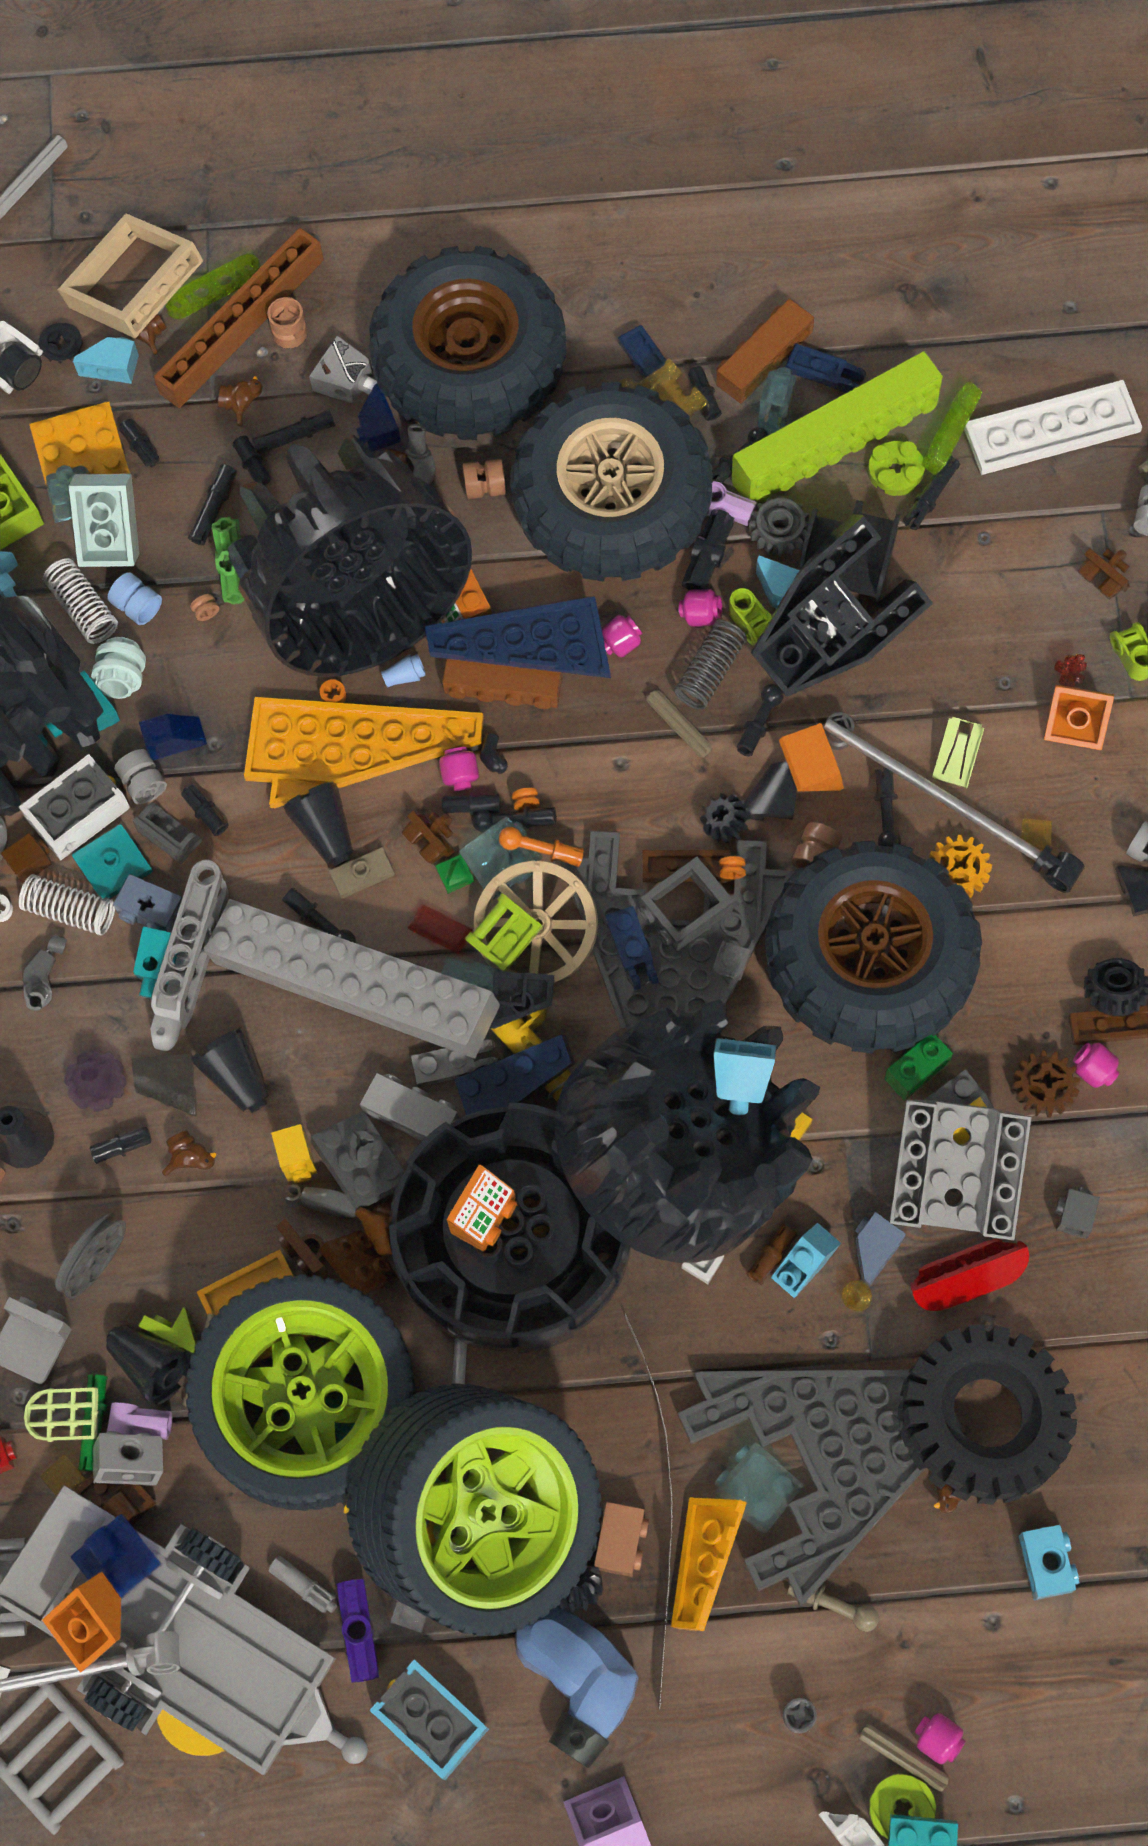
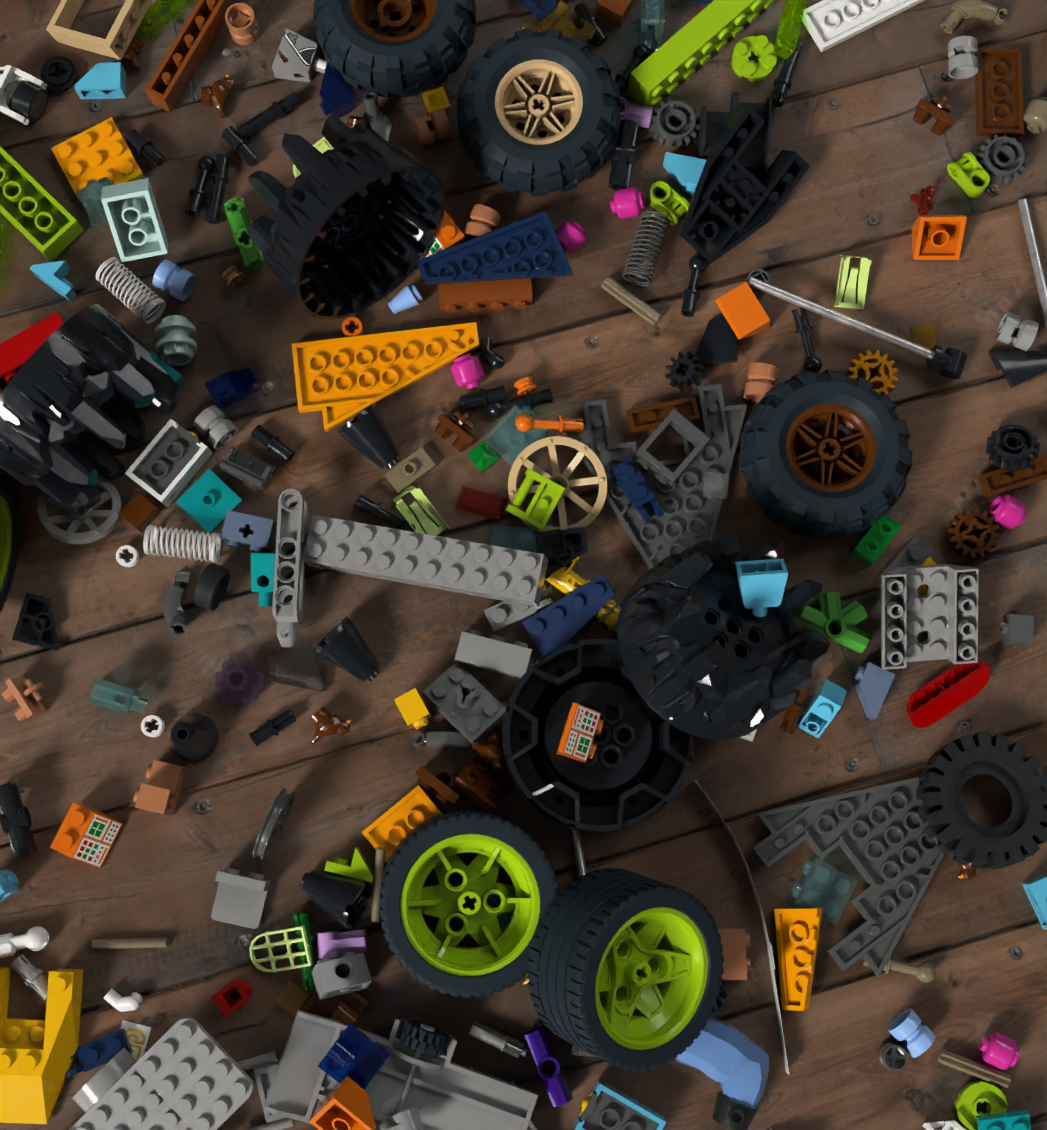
camera: 20 degrees left, 10 degrees up
(88, 960) = (211, 586): none -> black tyre
(187, 507) = (206, 166): none -> black pin
(364, 933) = (428, 525): none -> yellowish green piece
(496, 448) = (436, 100): none -> yellow plate
(518, 595) = (482, 220): none -> nougat wheel
(732, 867) = (701, 411): orange bush -> none
(830, 1690) = (915, 1037): none -> light blue wheel
(851, 1298) = (864, 733): clear yellow plate -> none
(858, 1155) = (844, 619): none -> bright green piece

